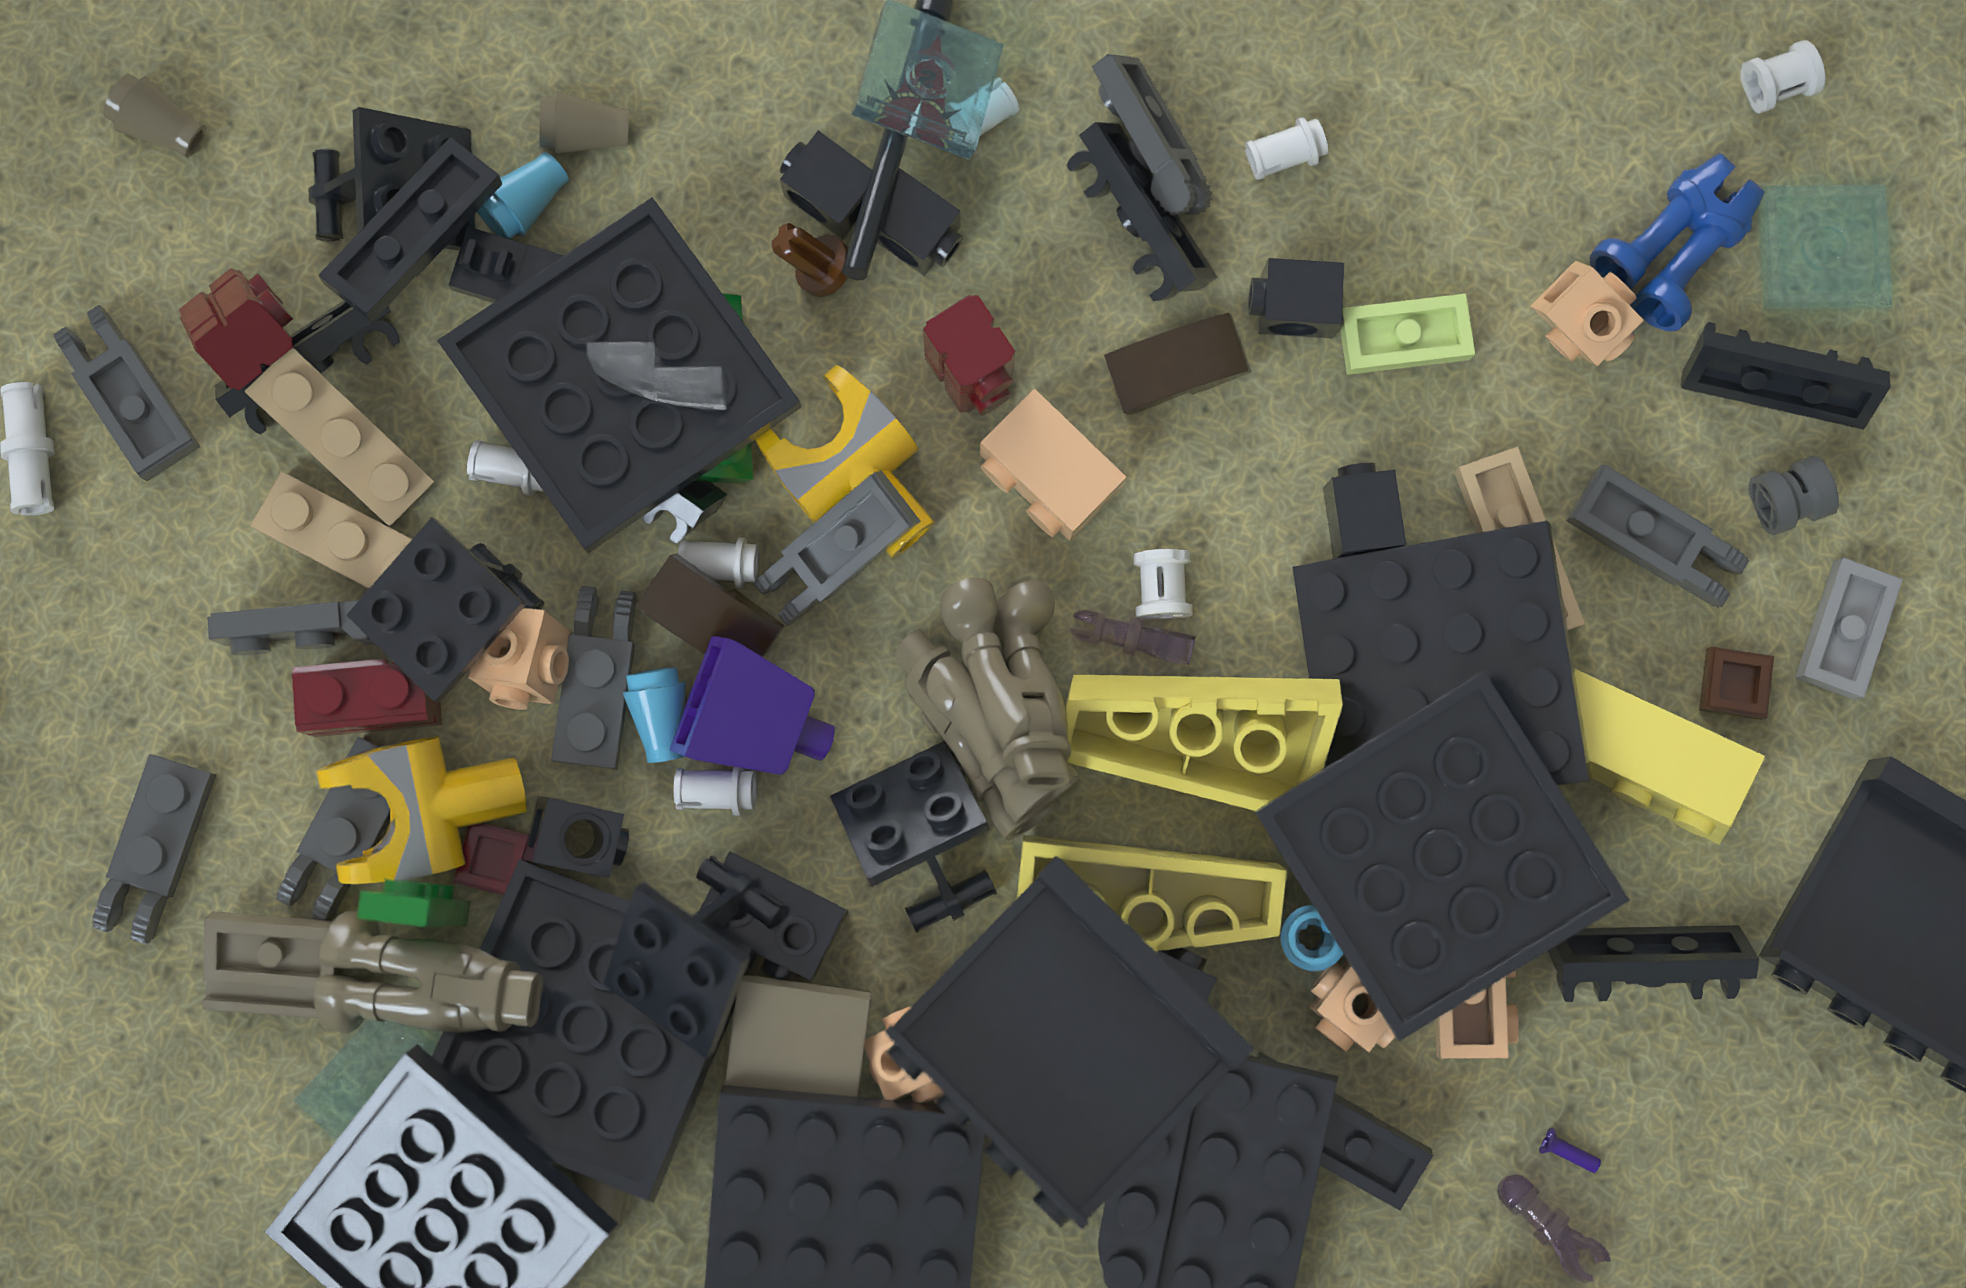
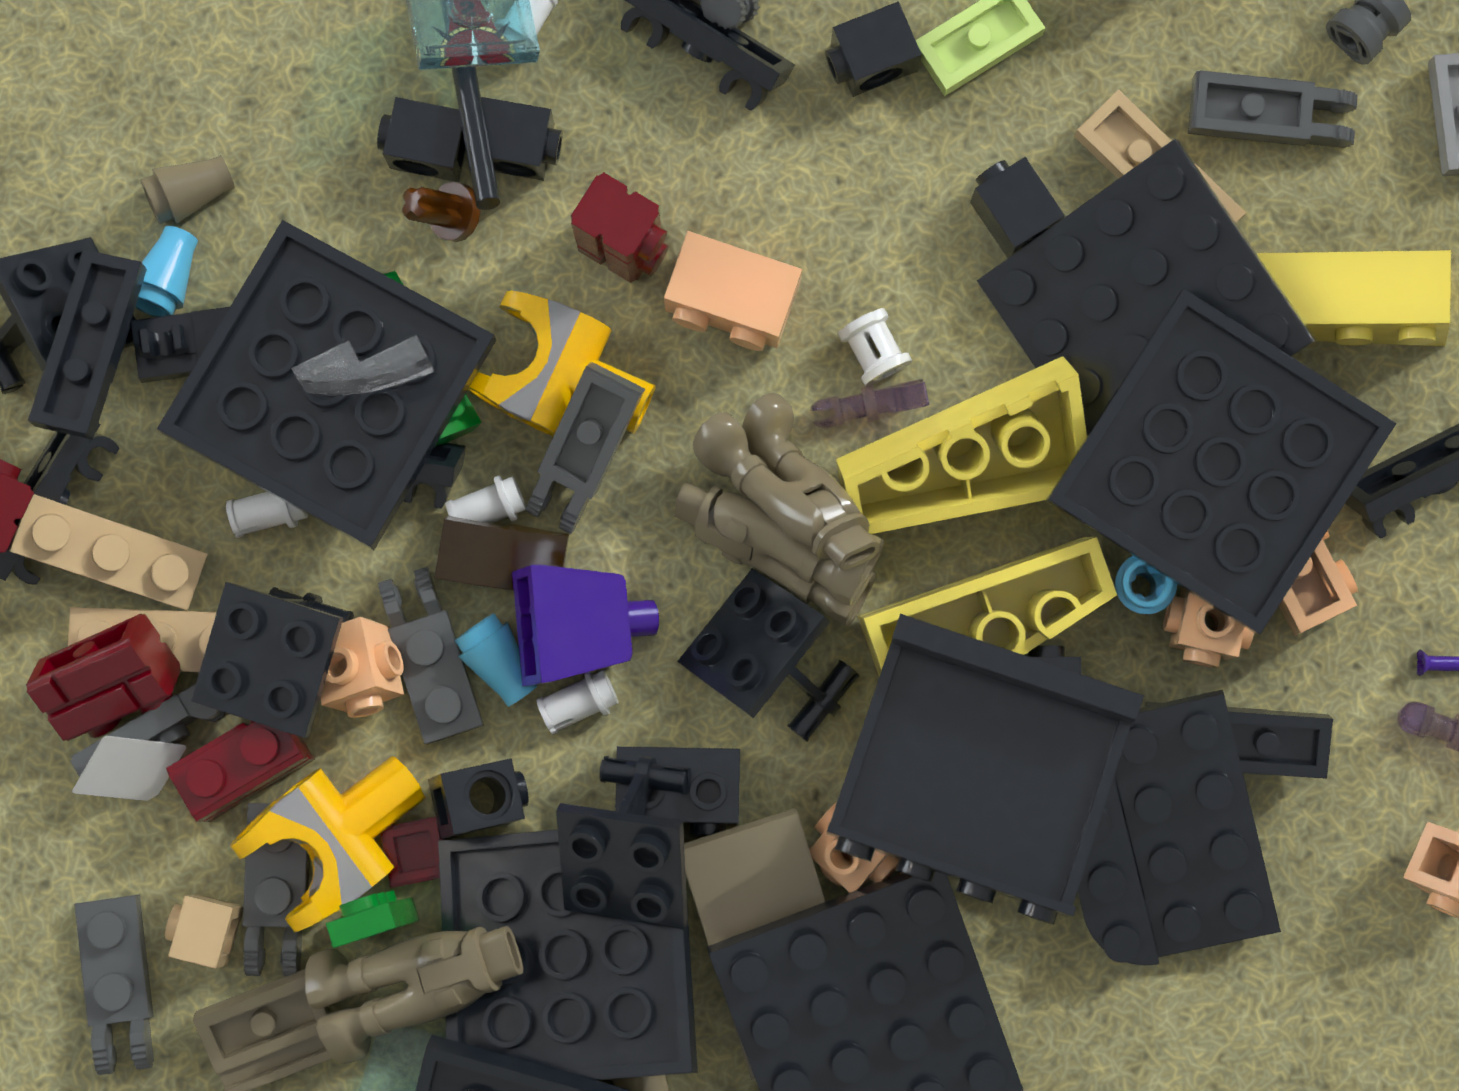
camera: 20 degrees left, 0 degrees up
(256, 838) = (203, 930): none -> tan plate
(258, 650) = (128, 768): none -> white sticker
(277, 554) = (104, 679): none -> dark red brick
(1177, 363) = (796, 153): dark brown slope -> none
(1736, 683) = (1395, 203): reddish brown tile -> none

